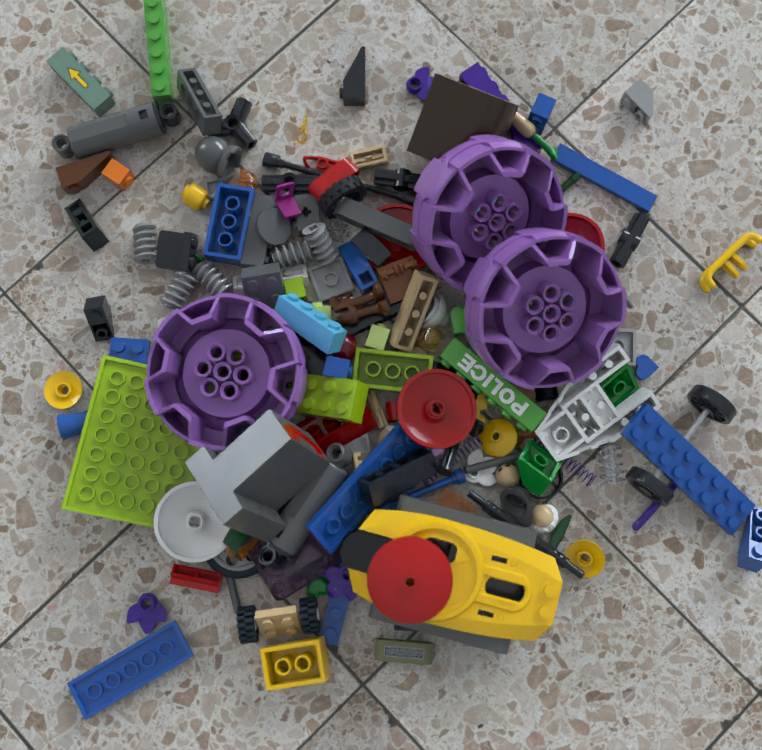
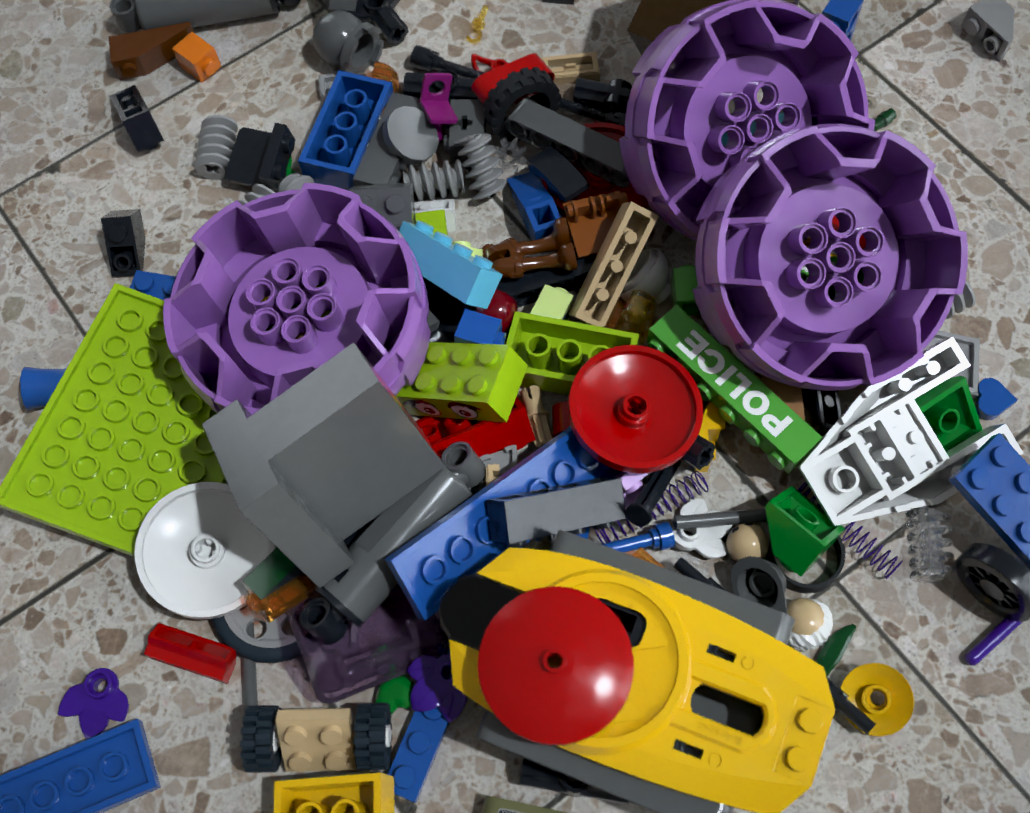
camera: 10 degrees right, 15 degrees down
(57, 383) = (39, 327): yellow dish -> none
(195, 197) = (303, 94): yellow head -> none
(331, 279) = (489, 220): light grey tile -> none
(506, 441) = (742, 491): yellow dish -> none
(521, 436) = (774, 483): clear orange arm -> none
(605, 178) = (939, 126): blue tile -> none
(629, 240) = (978, 200): black piece -> none

